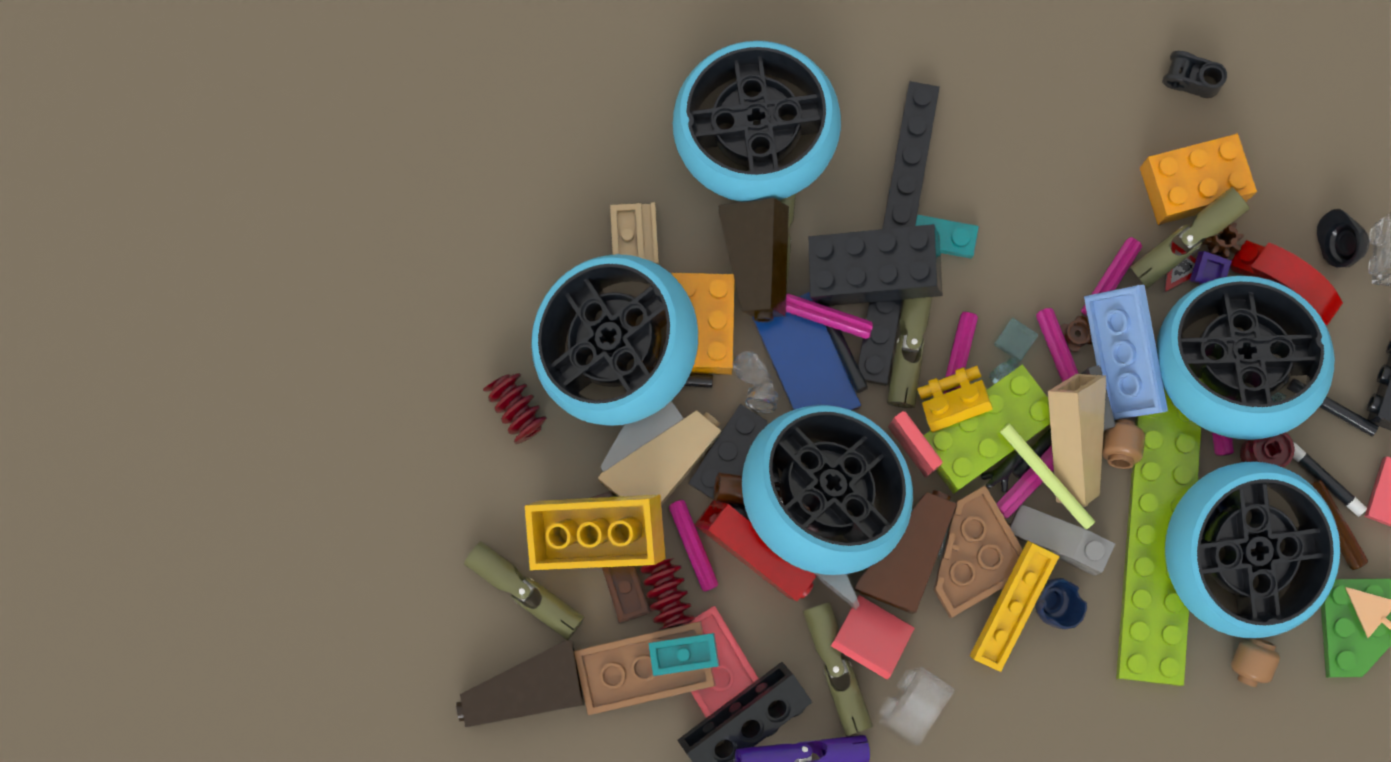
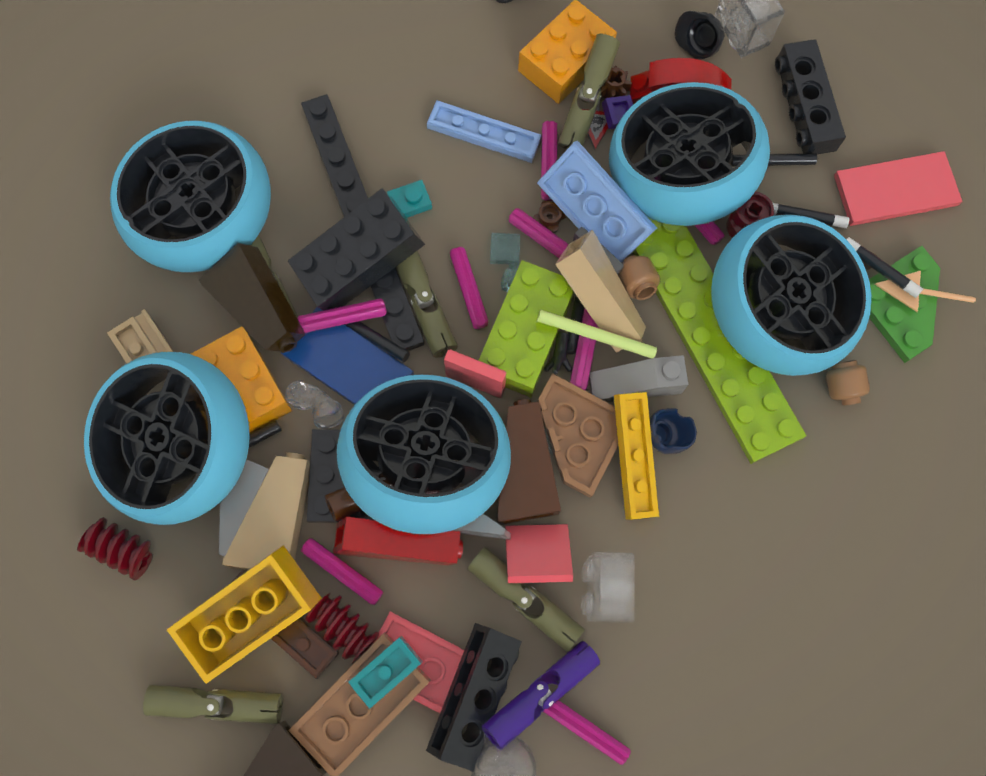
camera: 35 degrees left, 5 degrees down
(955, 405) = (489, 322): yellow plate -> none
(1067, 211) = (484, 131): none -> light blue tile
(1361, 576) = (886, 270): none -> black bar

